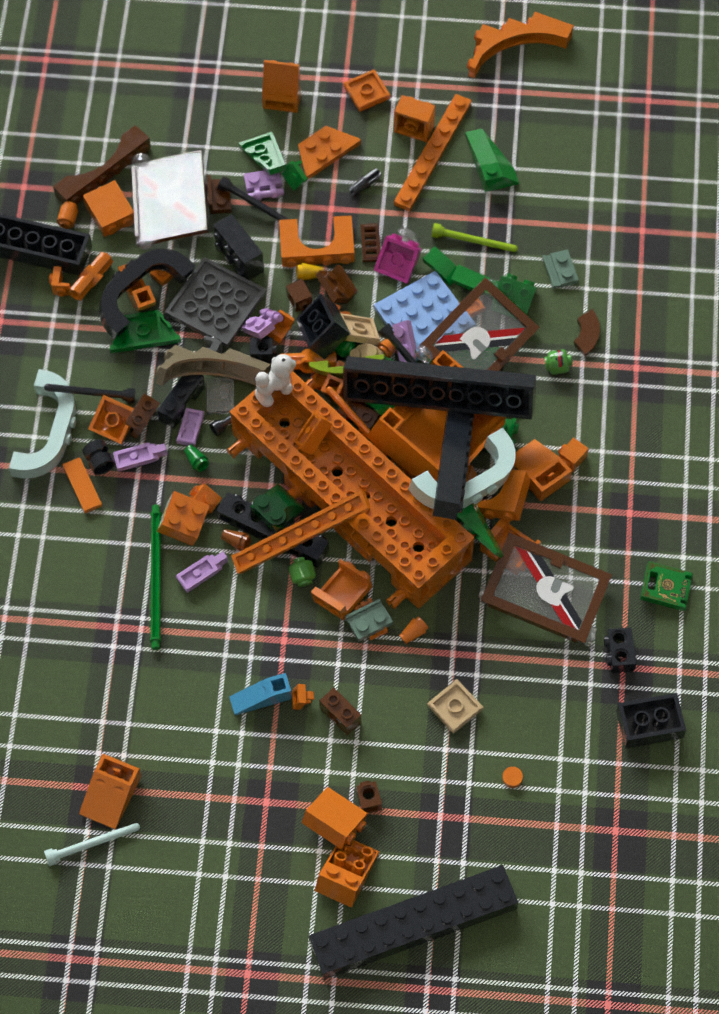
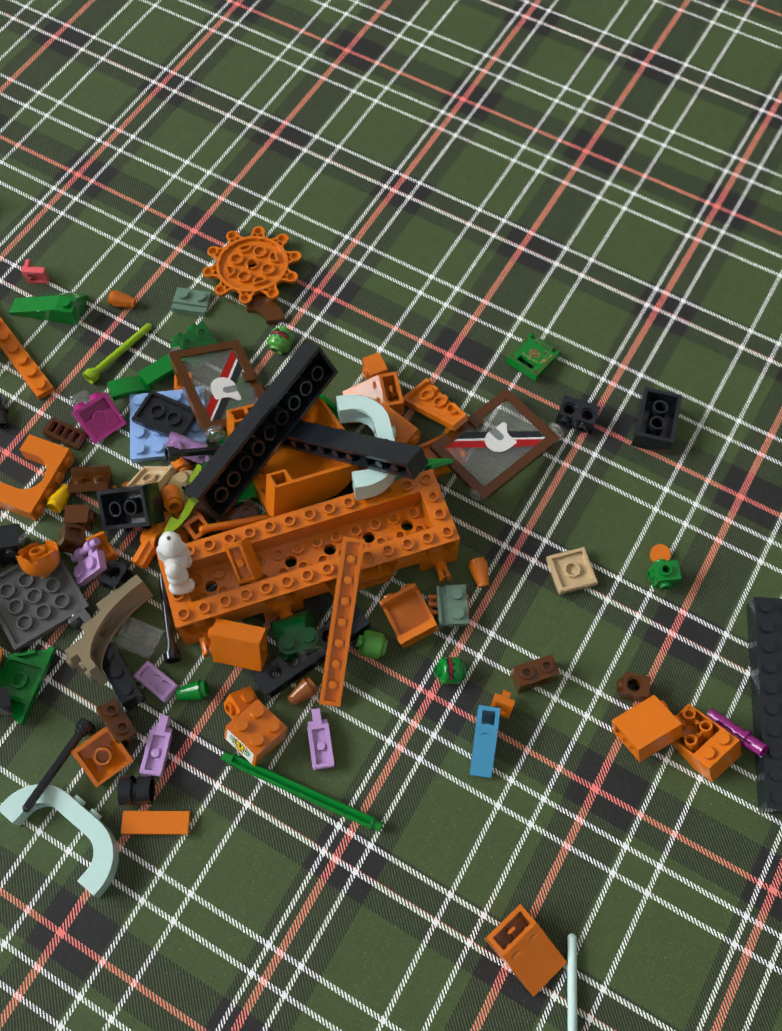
camera: 65 degrees left, 0 degrees up
(243, 285) = (39, 559): none -> orange cylinder
(244, 467) = (238, 644): none -> orange brick
(276, 299) = (71, 537): none -> reddish brown brick
(309, 643) = (450, 670): none -> green head
(348, 349) = (172, 499): none -> orange brick
(363, 898) = (746, 737): none -> magenta pin
(426, 307) = (164, 415): none -> black tile
(489, 784) = (664, 574): none -> green brick
(513, 128) = (34, 275): none -> coral bracket
(527, 211) = (120, 299): none -> orange cone
(558, 520) = (435, 405): none -> orange wing
(623, 280) = (240, 253): none -> orange plate

